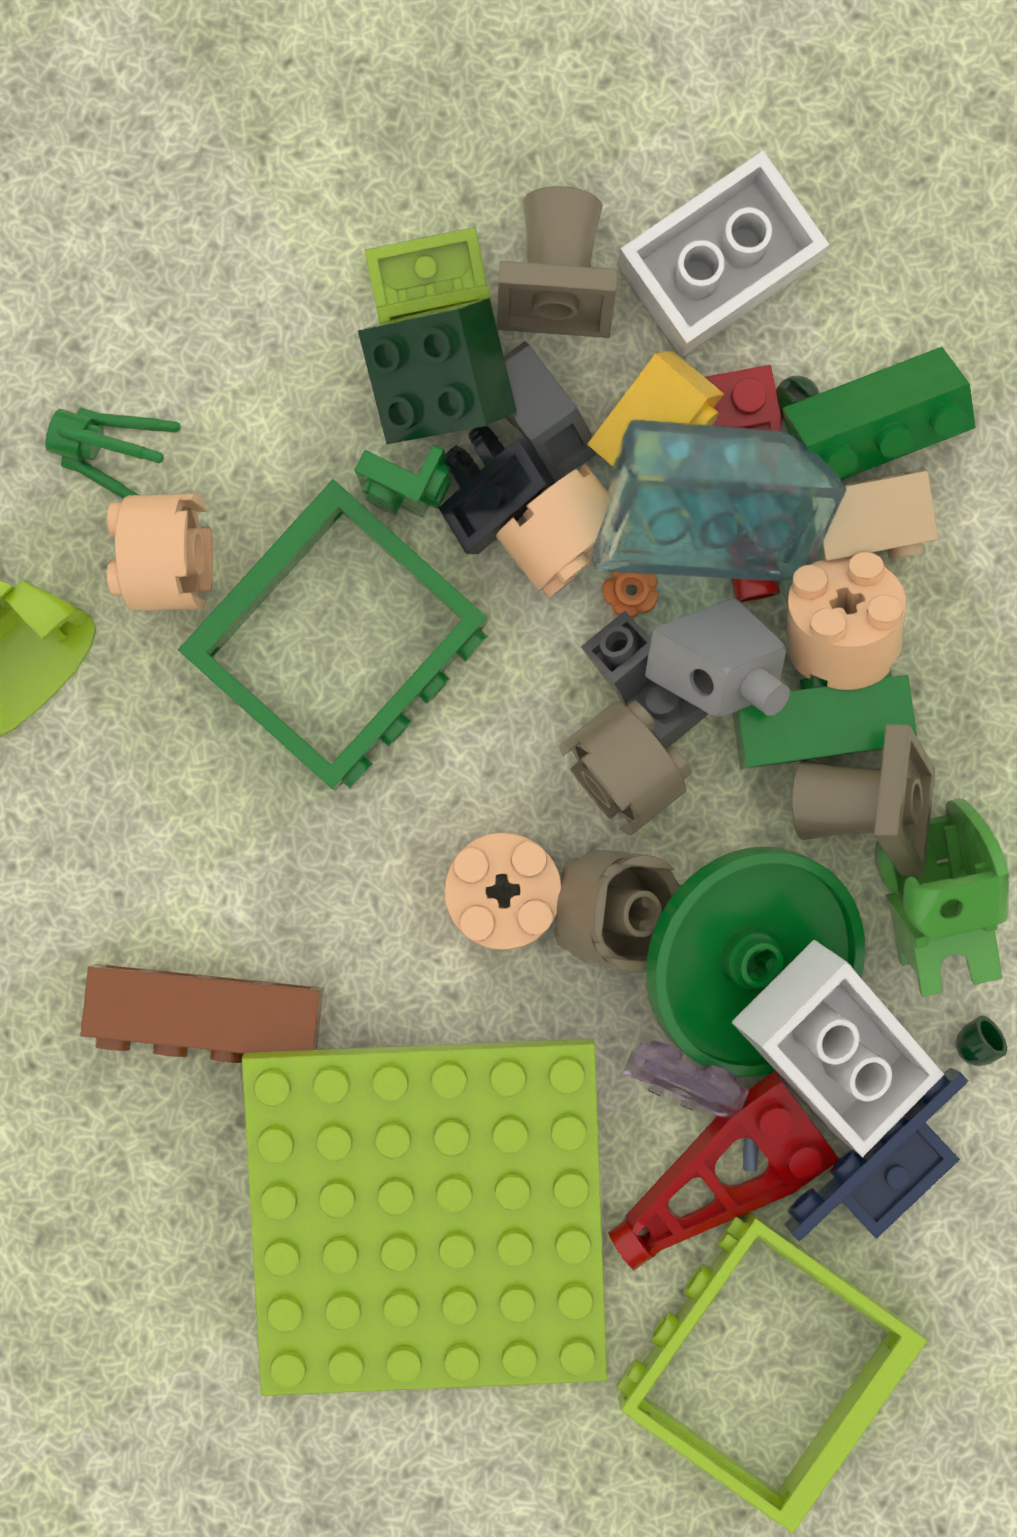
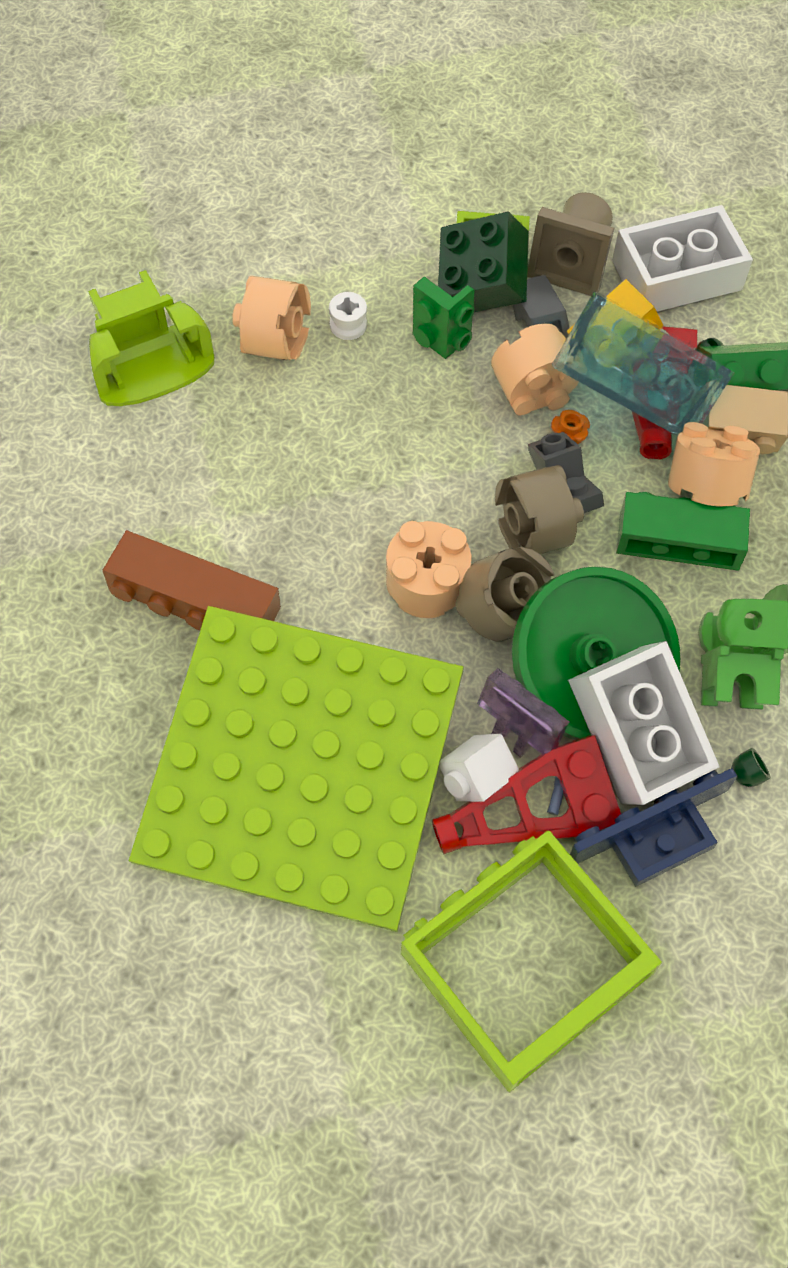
camera: 20 degrees right, 25 degrees down
(80, 437) = (248, 259): green plant -> none
(267, 506) = (341, 322): none -> white wheel
(269, 573) = (341, 352): green window -> none
(496, 492) = (479, 353): black hinge -> none
(647, 1159) = (478, 768): none -> white brick
(720, 660) = (633, 463): light grey torso -> none
(882, 801) = (705, 574): dark tan plant -> none

